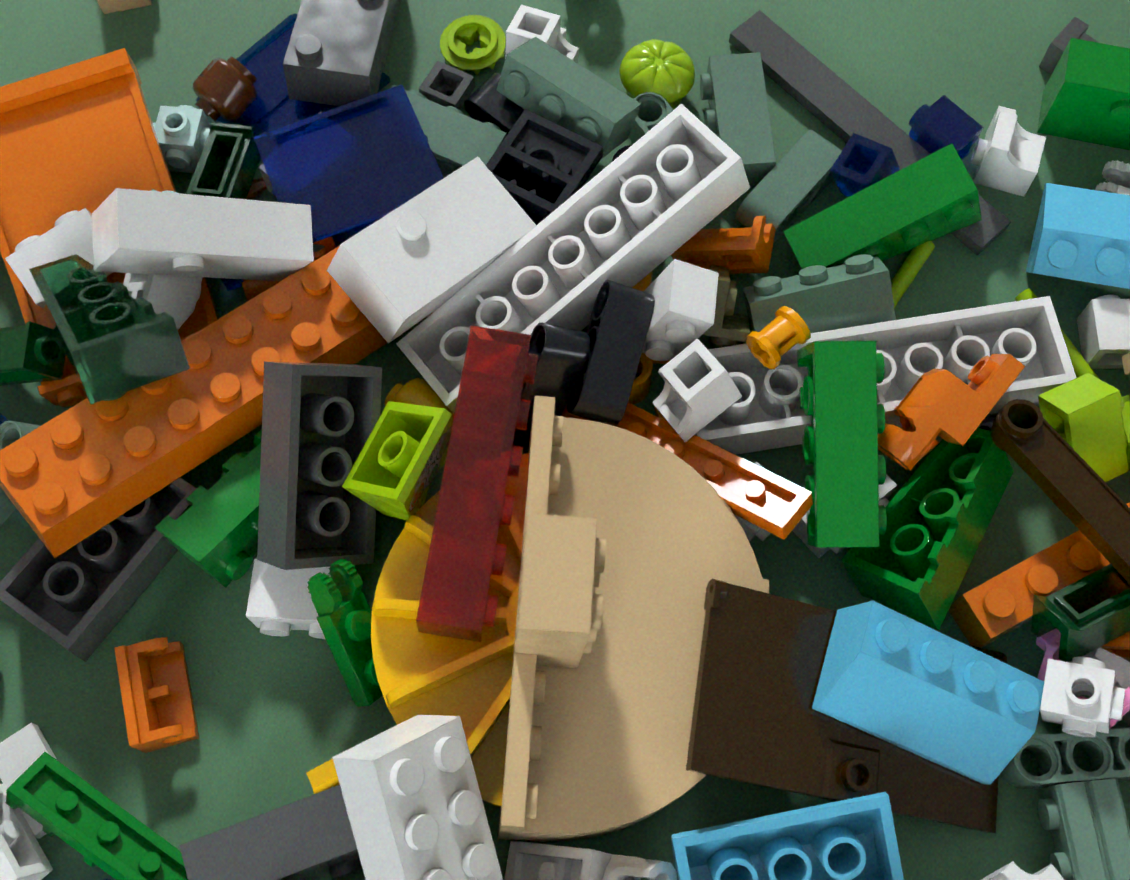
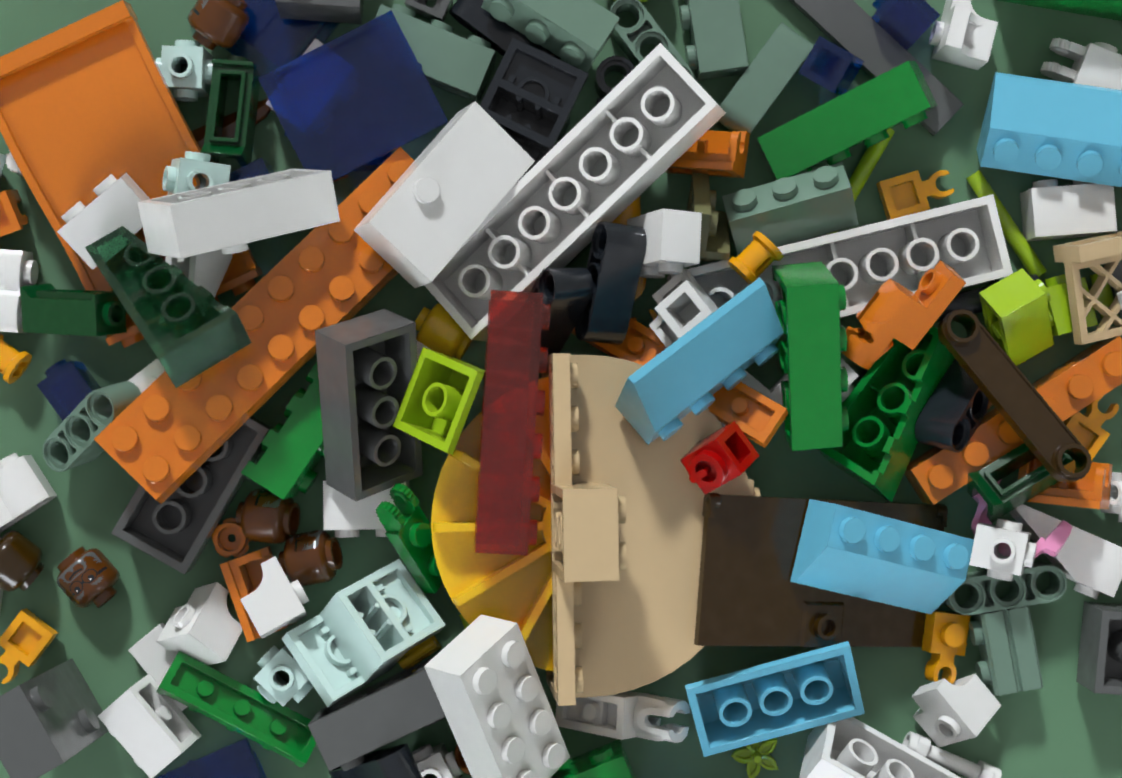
camera: 15 degrees left, 20 degrees up
(80, 726) = (202, 626): none -> white brick
(137, 614) = (221, 541): none -> orange plate
(169, 693) = (275, 600): none -> white brick
(185, 602) = (268, 517): none -> reddish brown head
(185, 802) = (273, 686): none -> light aqua brick
(227, 655) = (311, 557): none -> reddish brown head
(269, 743) = (363, 632): none -> light aqua bracket
(707, 425) = (701, 364): none -> medium azure slope
(727, 537) = (719, 458): none -> red brick
(953, 297) = (909, 194): none -> light orange plate
(1011, 820) = (944, 638): none -> light orange plate
(1013, 527) = (952, 411): none -> black beam

